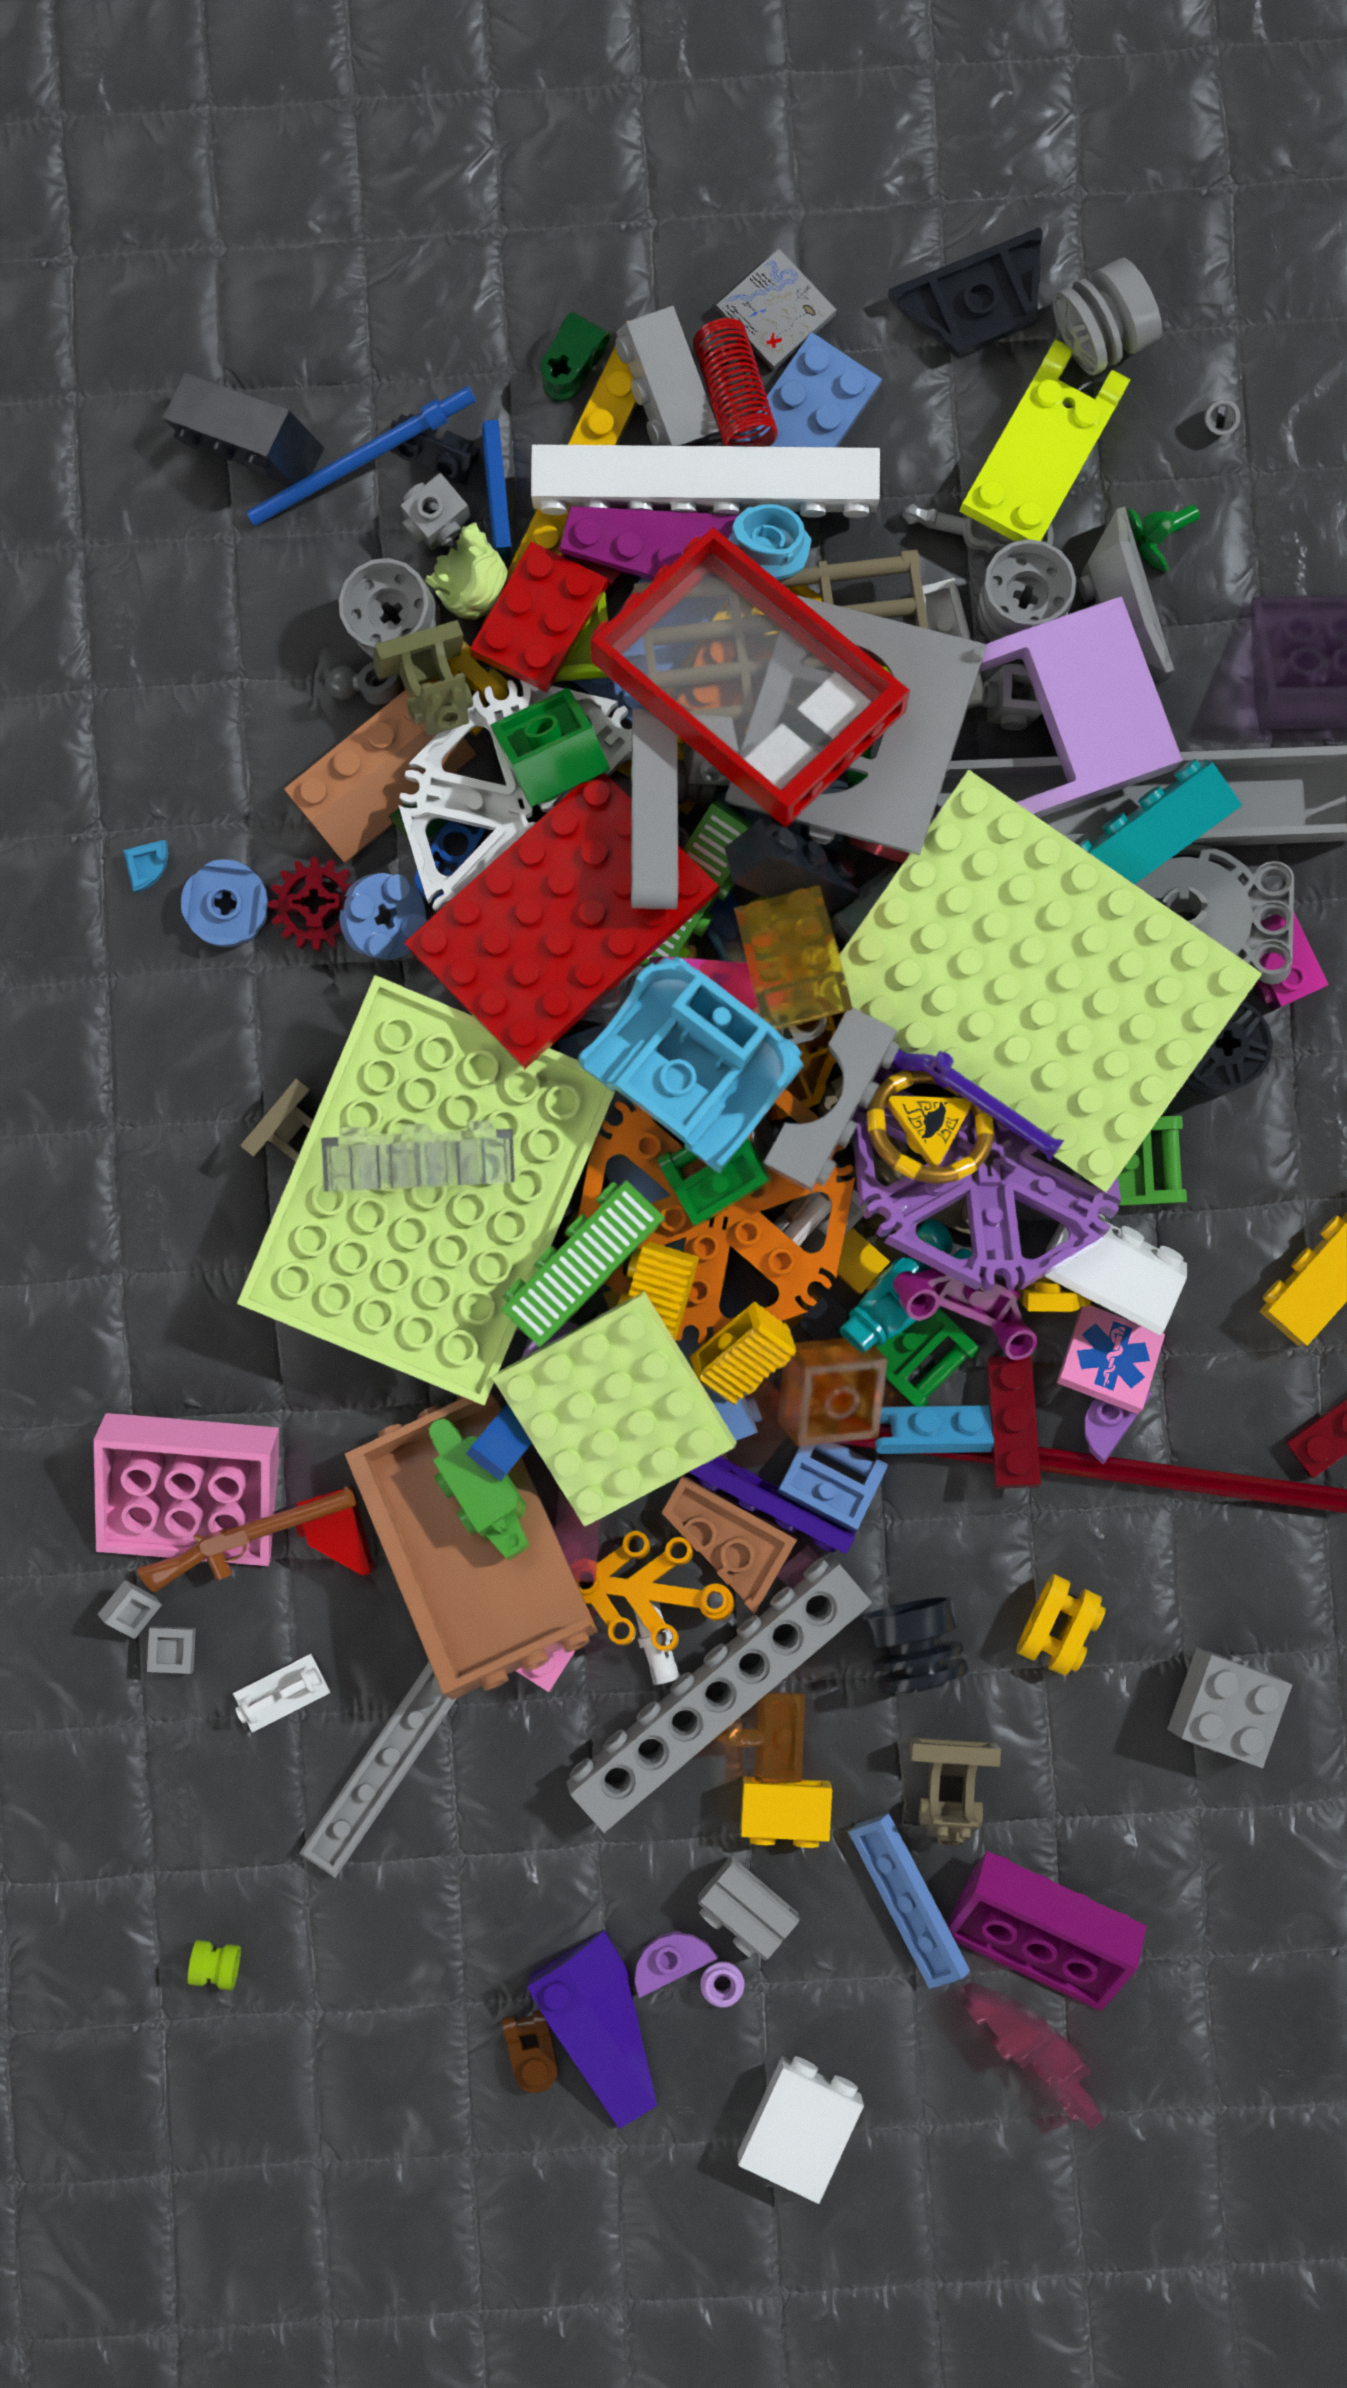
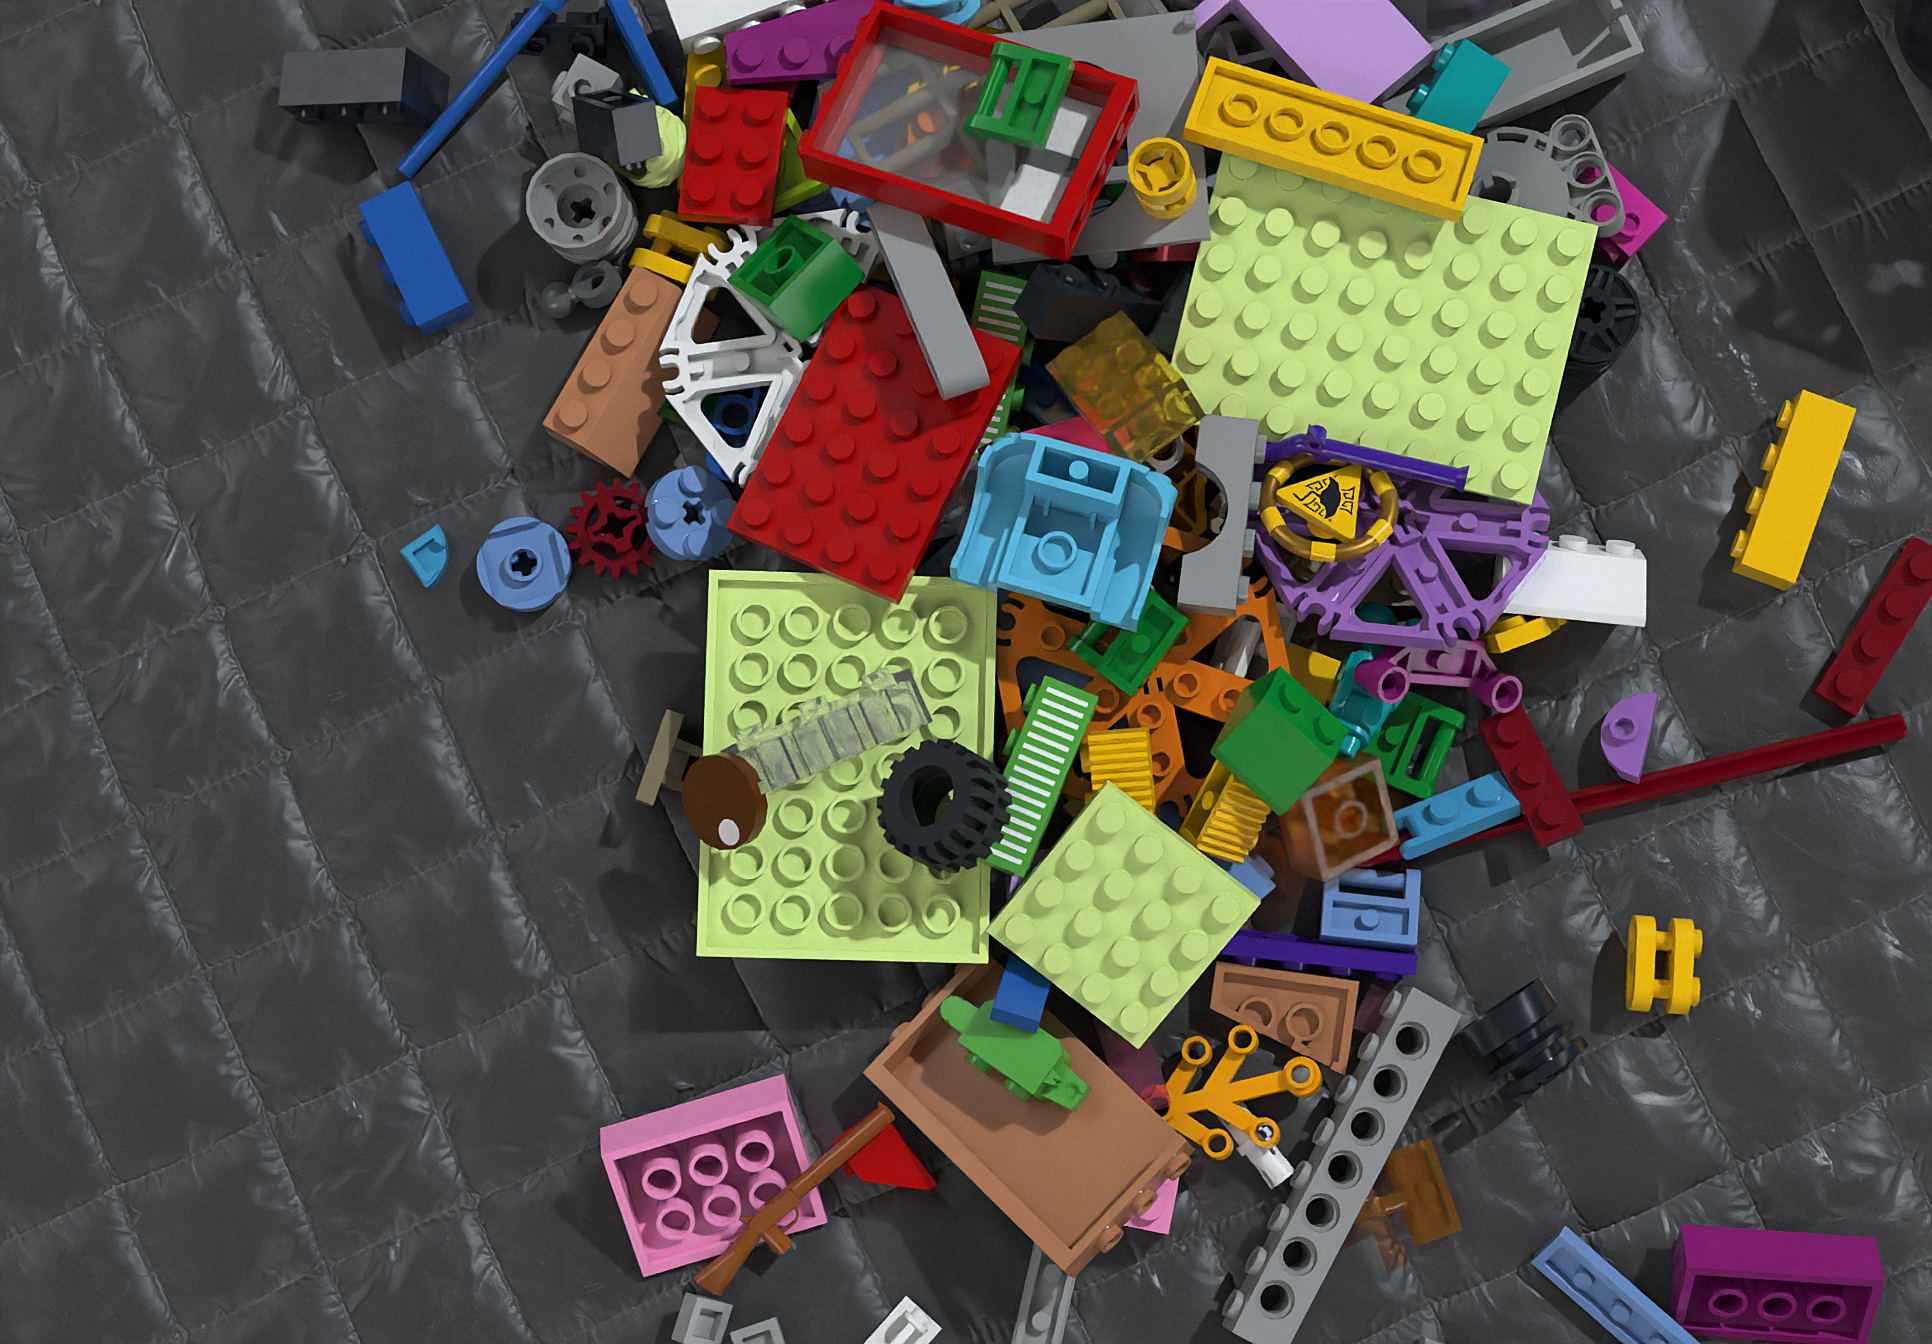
camera: 15 degrees left, 5 degrees down
(230, 599) = (414, 260): none -> blue brick
(308, 1182) = (724, 801): none -> reddish brown tile
(421, 659) = (635, 240): olive tile -> none
(445, 553) = (617, 127): none -> black brick
(474, 1240) = (970, 822): none -> black tyre
(786, 1812) = (1459, 1265): yellow brick -> none
(804, 1314) = (1278, 739): none -> green slope
(810, 673) = (1032, 100): none -> green plate
(897, 785) = (1164, 167): none -> yellow wheel
(952, 1820) = (1631, 1210): dark tan tile -> none
(1061, 808) = (1333, 139): none -> yellow plate
(1111, 1359) = (1603, 674): bright pink tile -> none
(1137, 1179) = (1554, 478): bright green plate -> none
(1229, 1707) = (1867, 980): light grey brick -> none

